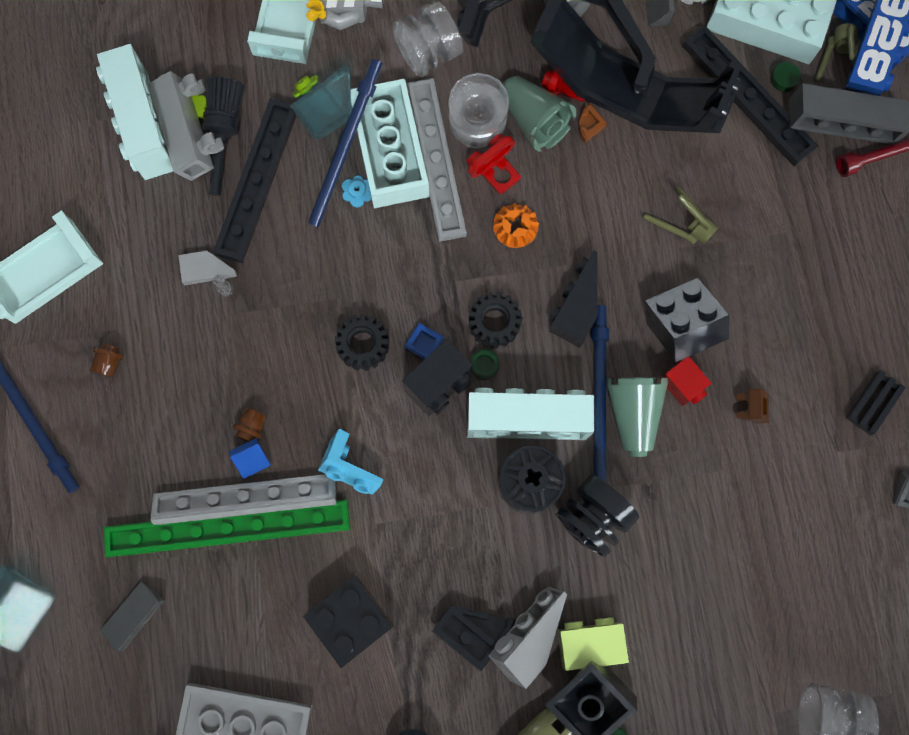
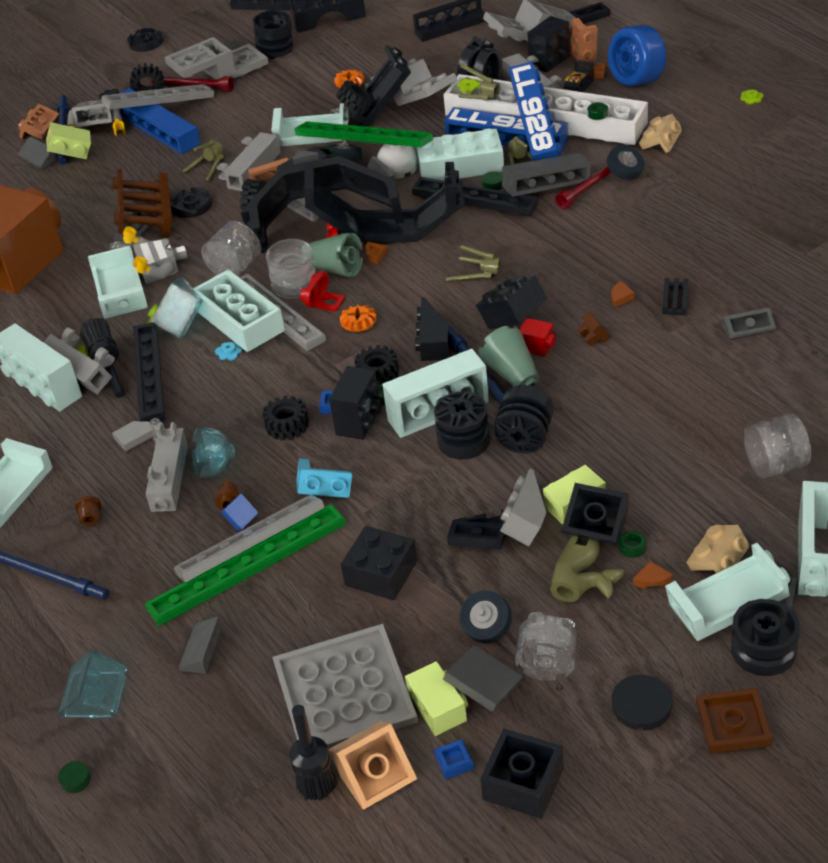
camera: 20 degrees left, 35 degrees down
(206, 350) = (166, 469): none -> light grey brick
(260, 357) = (211, 452): none -> clear light blue cylinder
(366, 89) = (205, 278): dark blue bar -> none
(818, 362) = (621, 294): none -> dark orange tile

